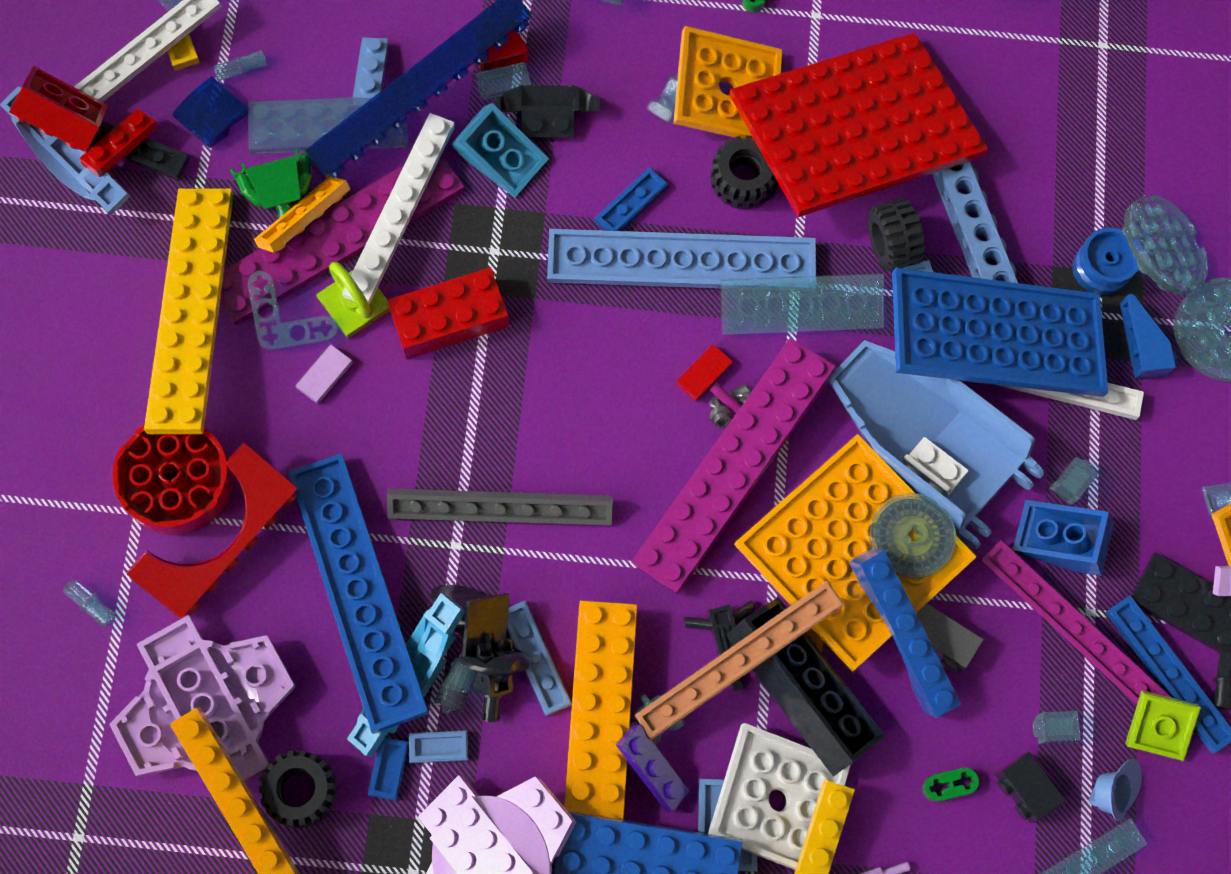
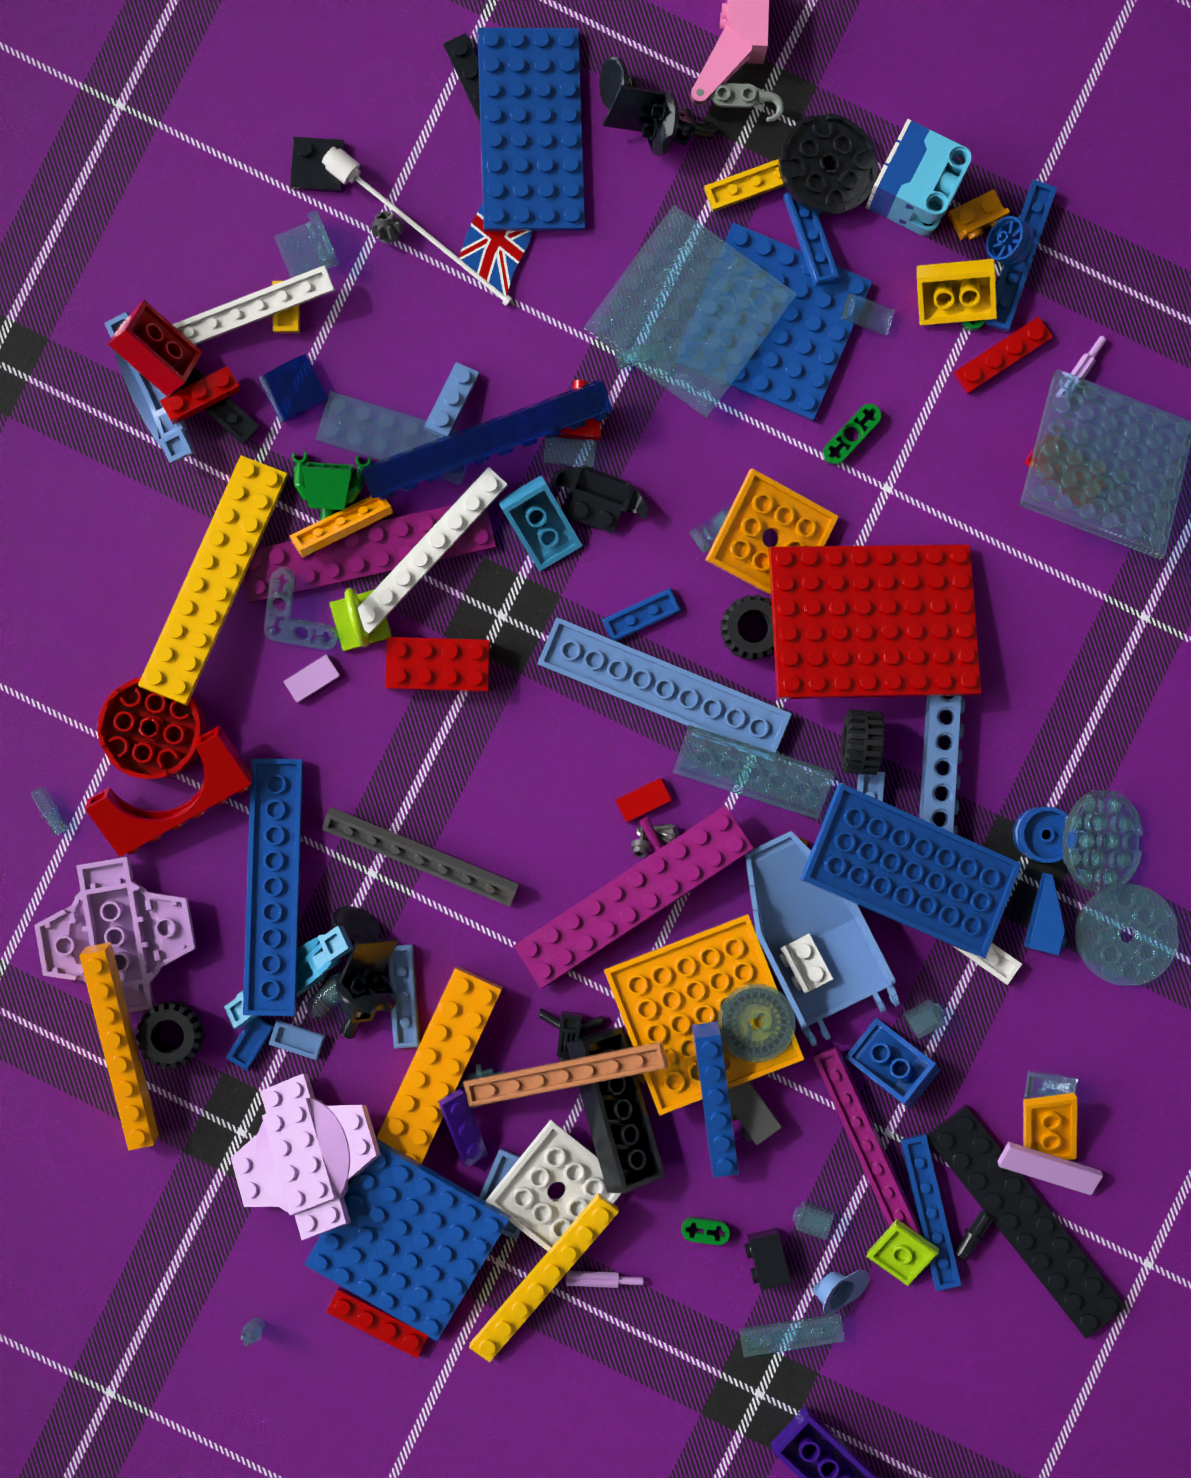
camera: 25 degrees right, 15 degrees up
(240, 65) = (334, 350): clear light blue axle -> none

